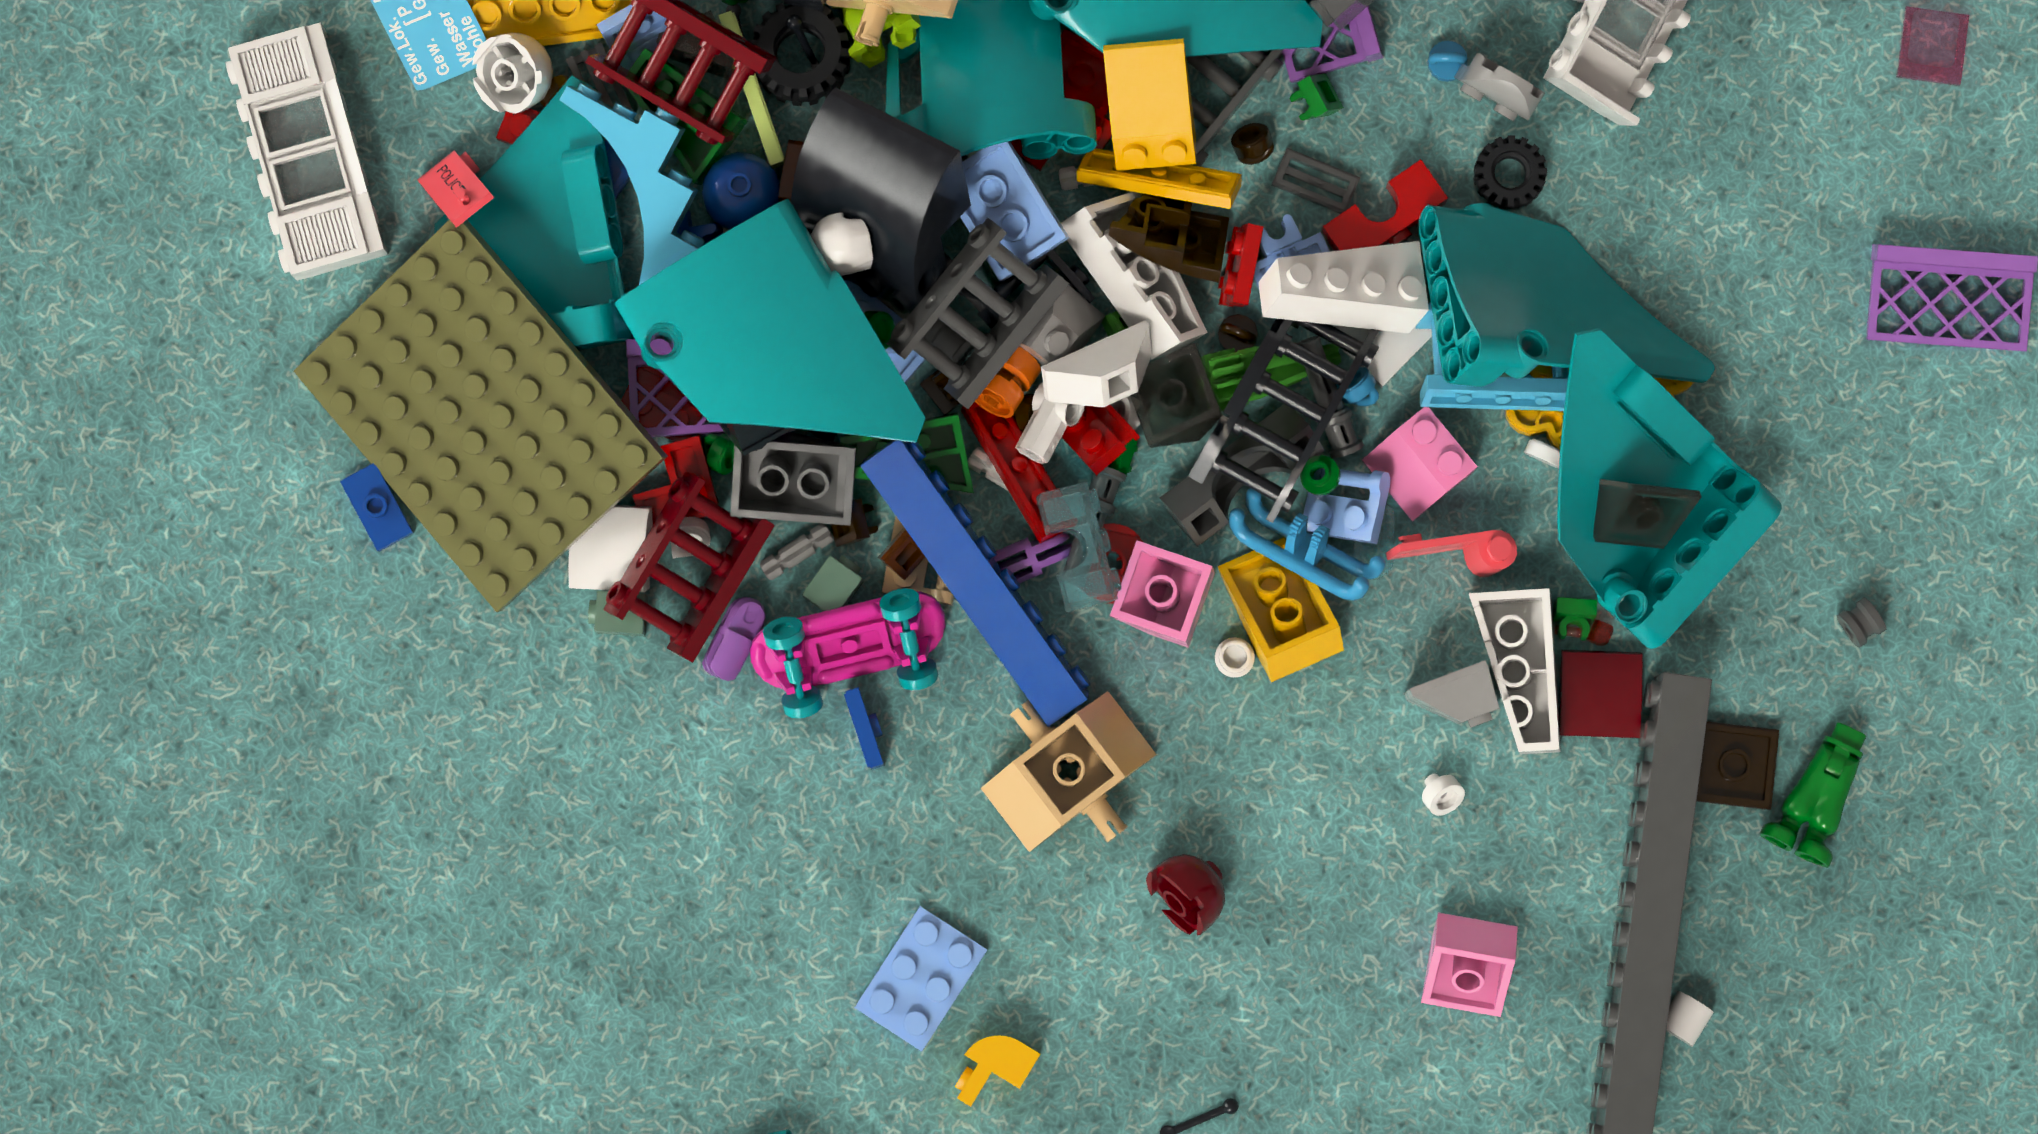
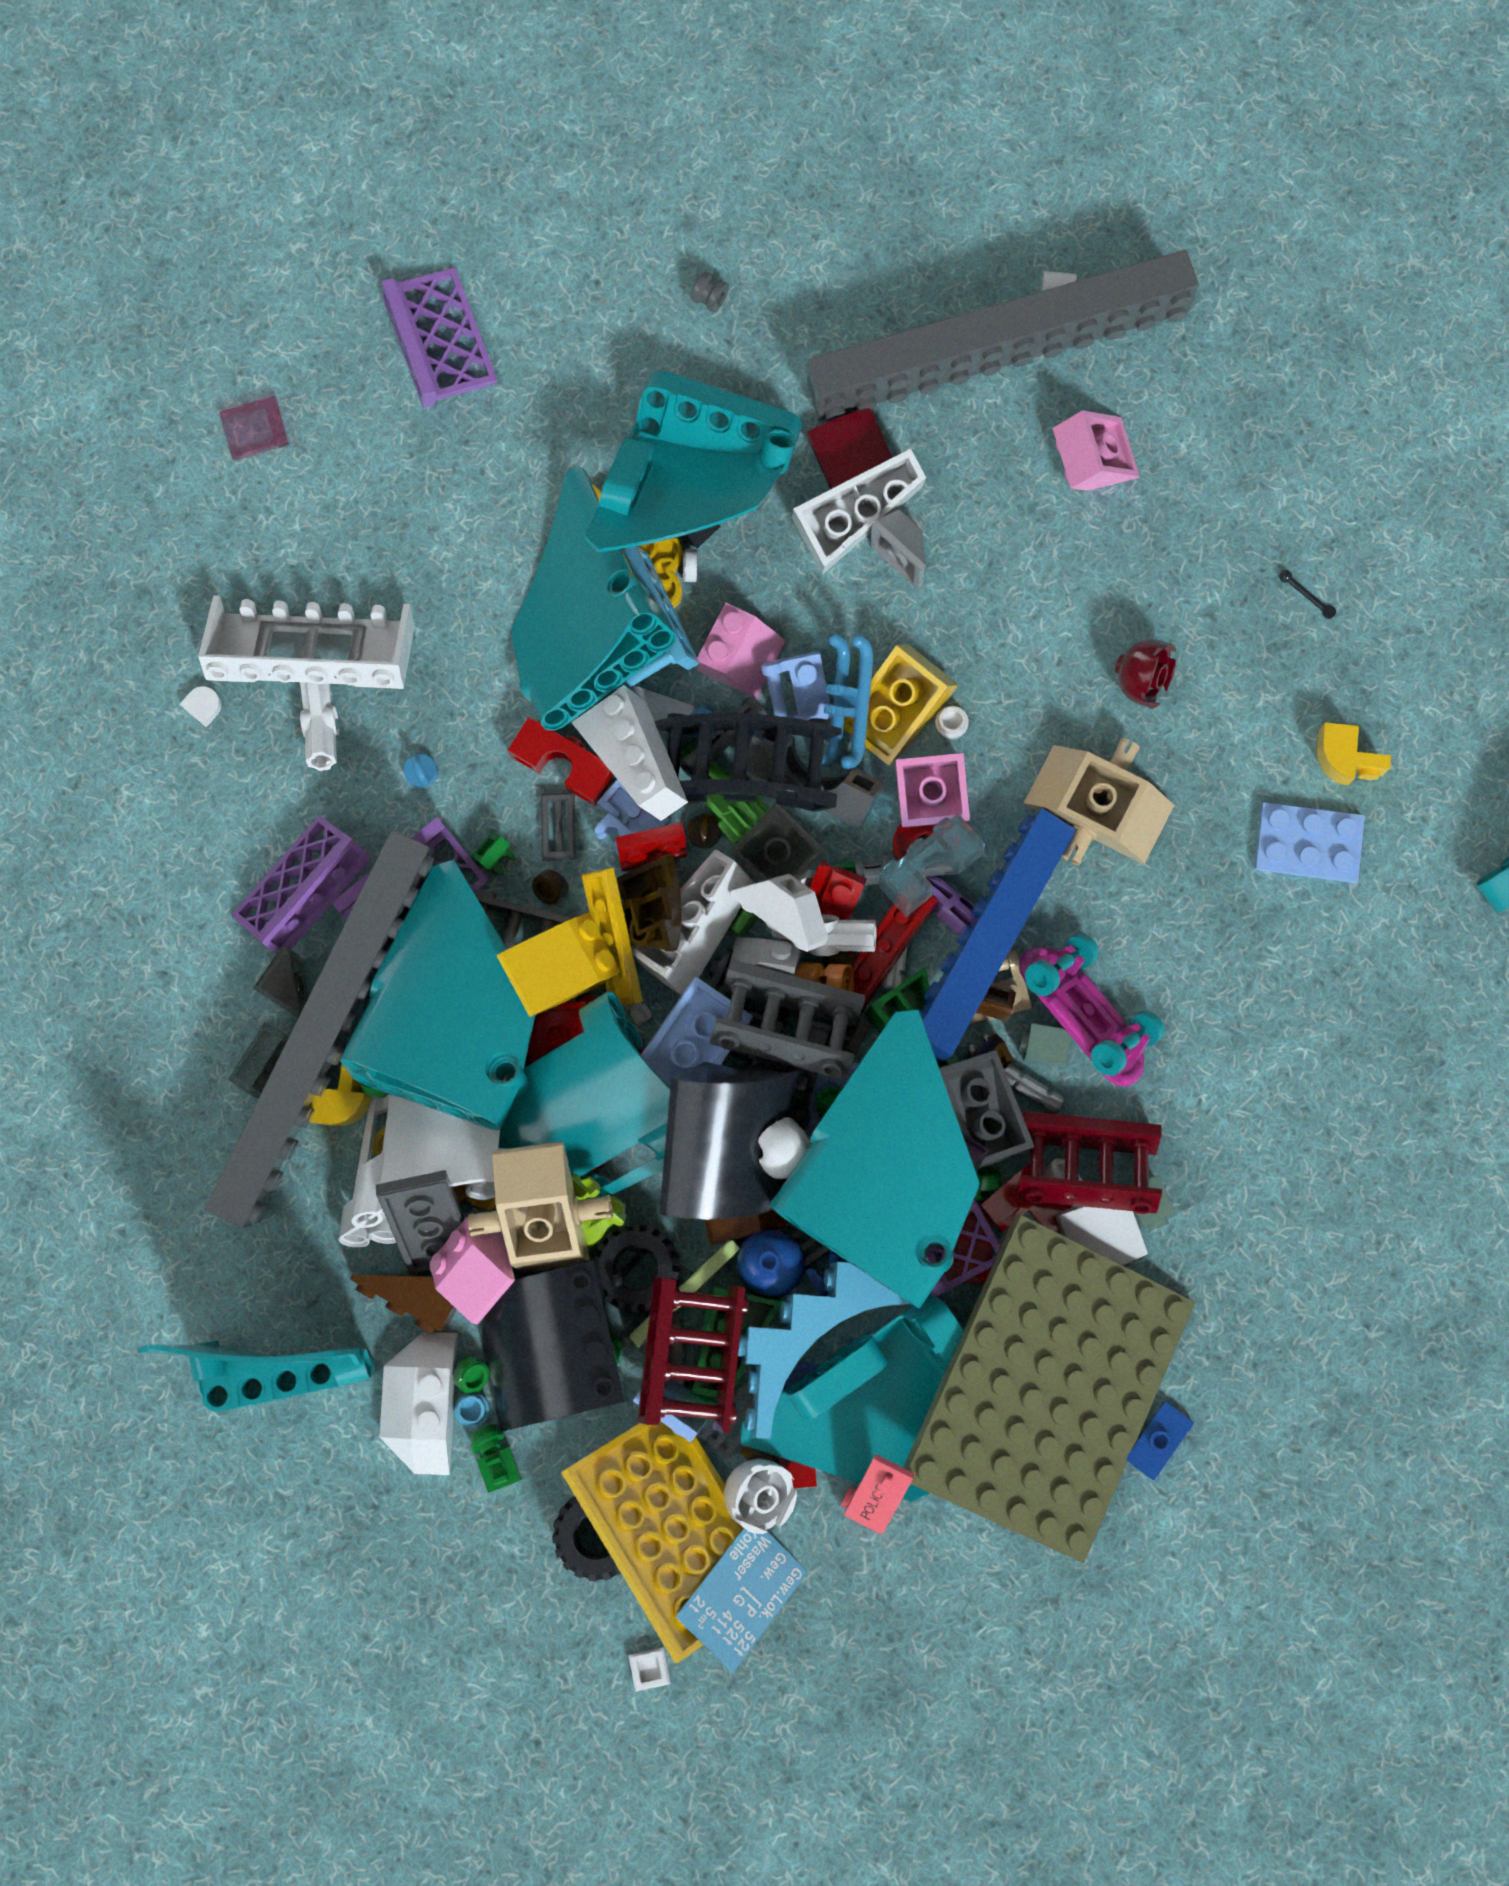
camera: 110 degrees left, 5 degrees down
(305, 152) = (901, 1641): white window -> none
(734, 638) = (1124, 1103): medium lavender arm -> none
(866, 727) = (1142, 969): blue plate -> none
(1328, 482) = (787, 703): green plate -> none
(1442, 794) = (980, 527): white tile -> none
(1484, 551) = (787, 578): coral door -> none
(1508, 90) = (424, 711): light grey slope -> none
(1510, 149) = (478, 668): black tyre -> none
(1574, 611) = (799, 488): green tile -> none
(1599, 633) = (806, 470): clear red hand -> none
(1641, 512) = (704, 463): clear smoke slope -> none
(1738, 766) = (853, 324): dark brown tile -> none
(1819, 797) = (852, 265): green piece -> none

